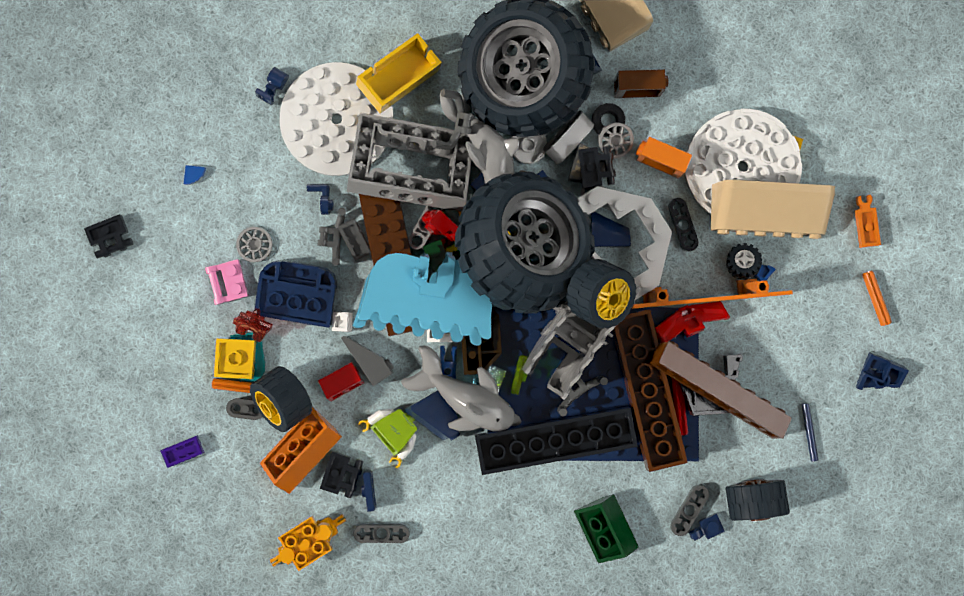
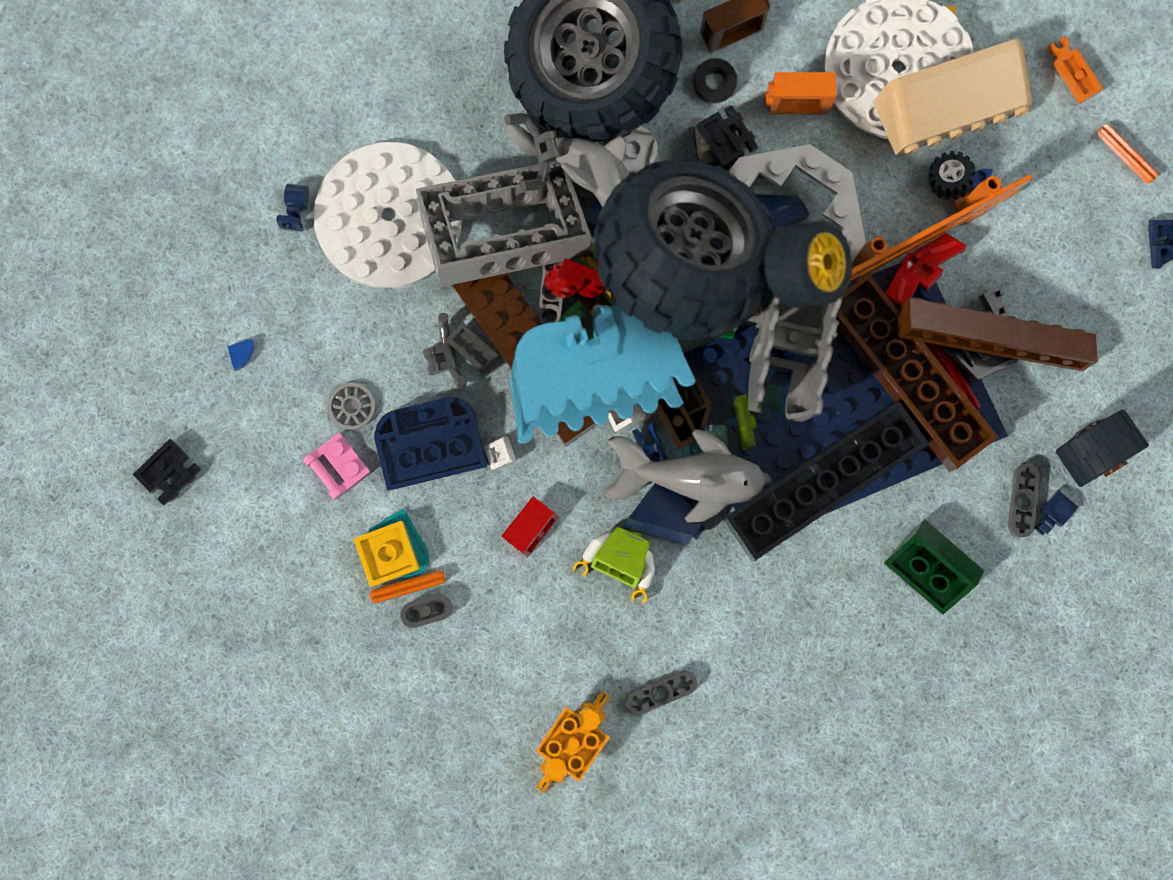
camera: 20 degrees left, 5 degrees down
(182, 451) = (368, 698): dark purple plate -> none
(254, 322) = (391, 498): clear red hips -> none
(281, 398) = (466, 575): black wheel -> none
(300, 451) = (515, 633): orange slope -> none
(326, 204) = (419, 318): dark blue plate -> none
(336, 471) = (571, 641): black plate -> none
(368, 490) = (621, 646): dark blue plate -> none
(371, 363) = (555, 486): dark grey slope -> none
(398, 73) = (441, 127): yellow piece -> none
(568, 137) = (677, 119): light grey beam -> none
(582, 388) = (828, 406): dark grey piece -> none
(616, 139) = (735, 96): light grey wheel -> none
(674, 212) = (860, 154): black beam -> none
(810, 432) = (1124, 345): dark blue bar -> none

